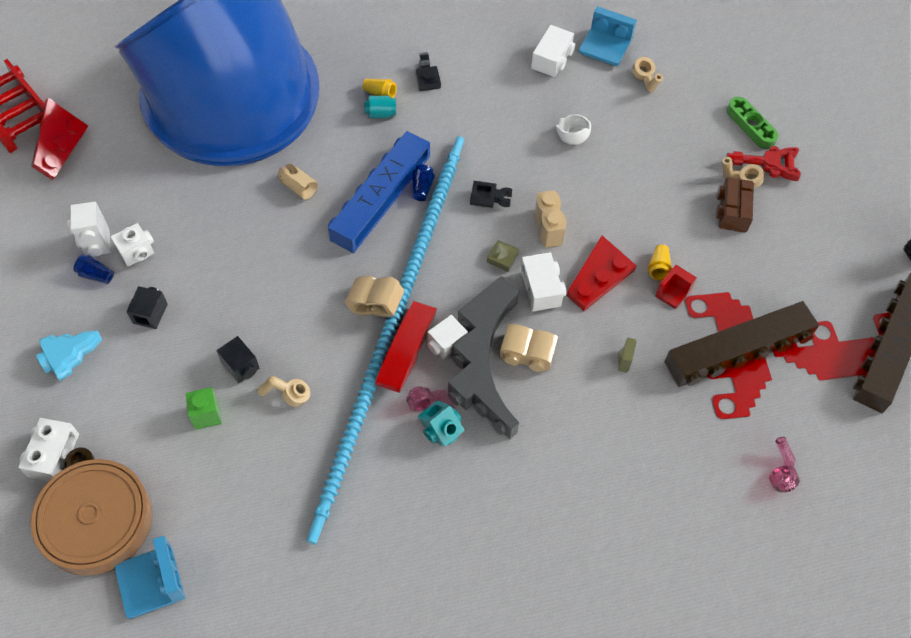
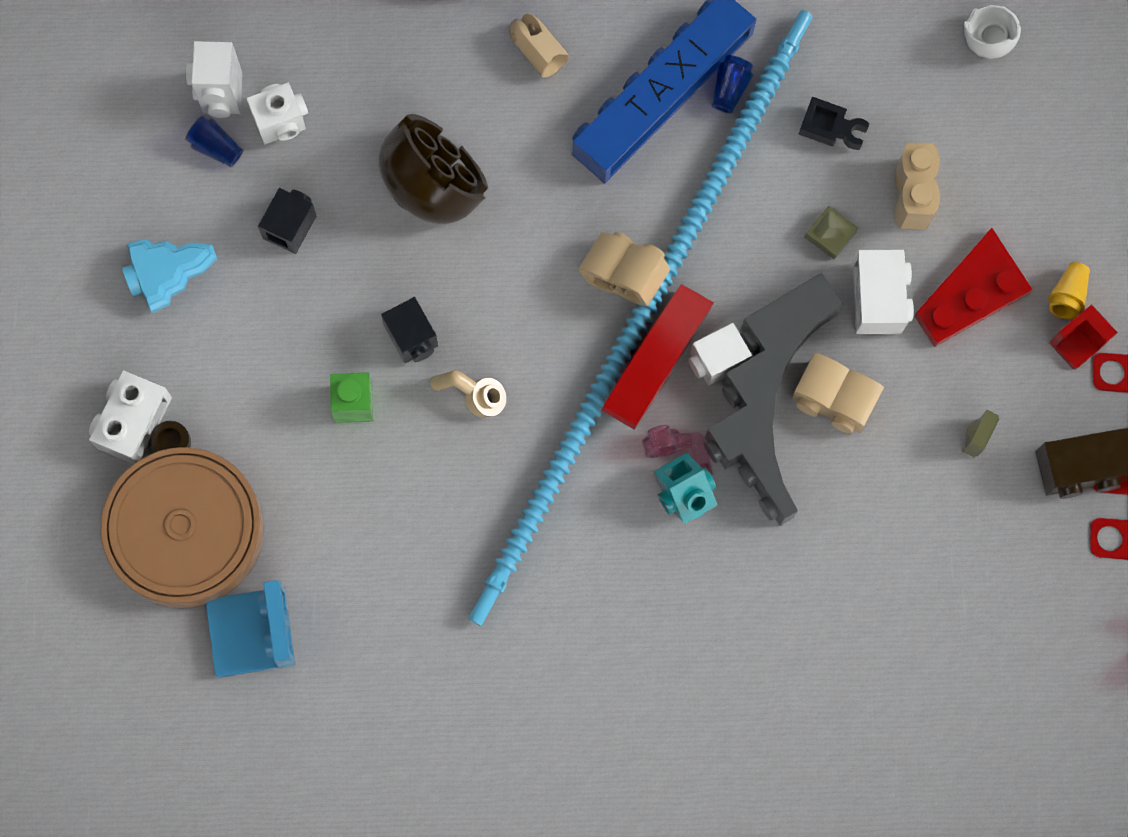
camera: 10 degrees right, 15 degrees up
(237, 262) = (419, 172): none -> dark brown cylinder

